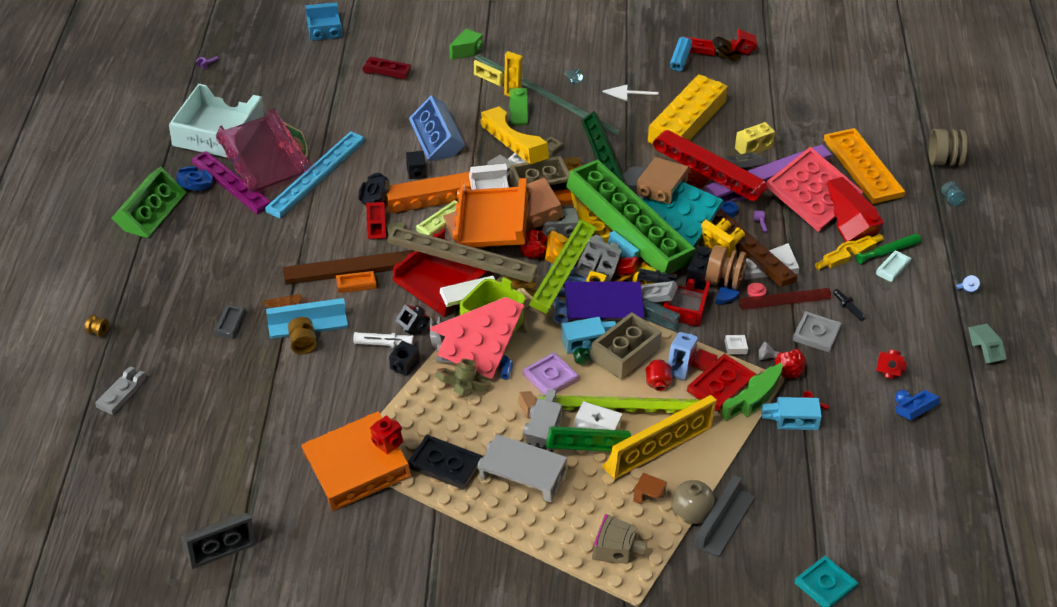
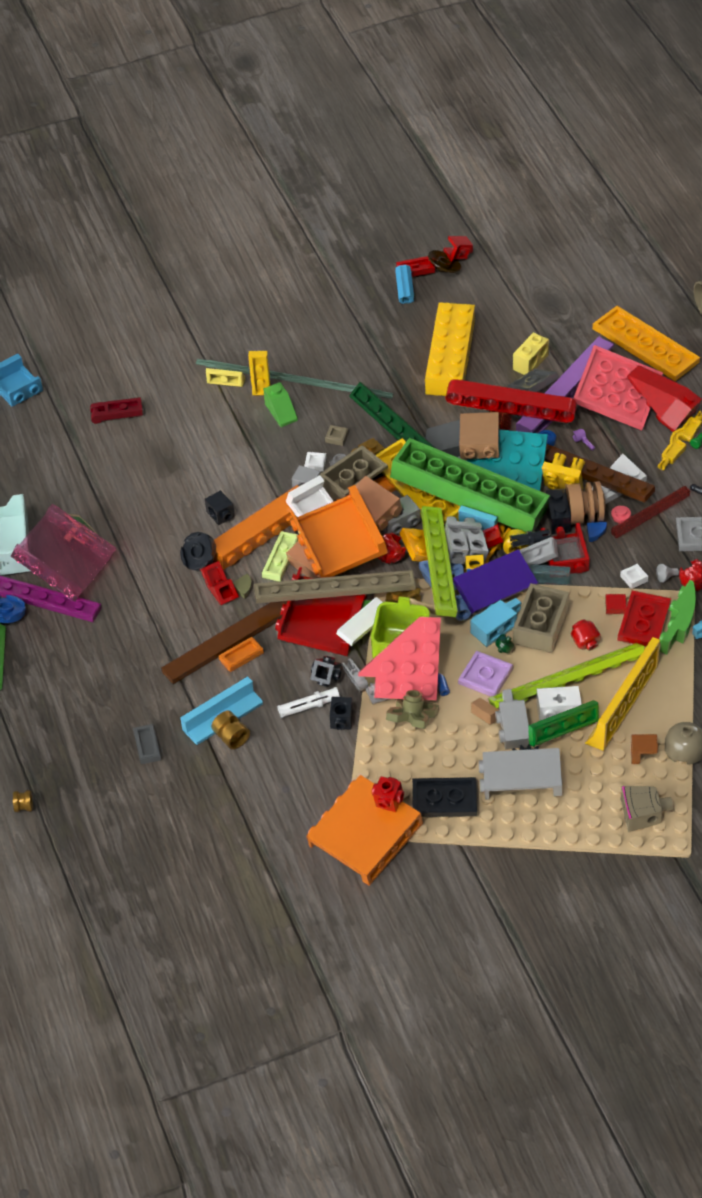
camera: 20 degrees left, 5 degrees up
(120, 391) = (91, 857): light grey hinge -> none
(218, 540) = (289, 954): dark grey slope -> none
(282, 301) = (186, 703): clear orange slope -> none
(314, 175) = (123, 557): medium azure tile -> none
(436, 130) = (214, 461): medium blue slope -> none
(466, 44) = (182, 352): bright green slope -> none
(528, 147) = (327, 448): yellow arch -> none
(574, 76) = (311, 348): clear light blue rock -> none
(621, 92) = (367, 349): white piece -> none
(682, 348) = (596, 598): light blue torso -> none

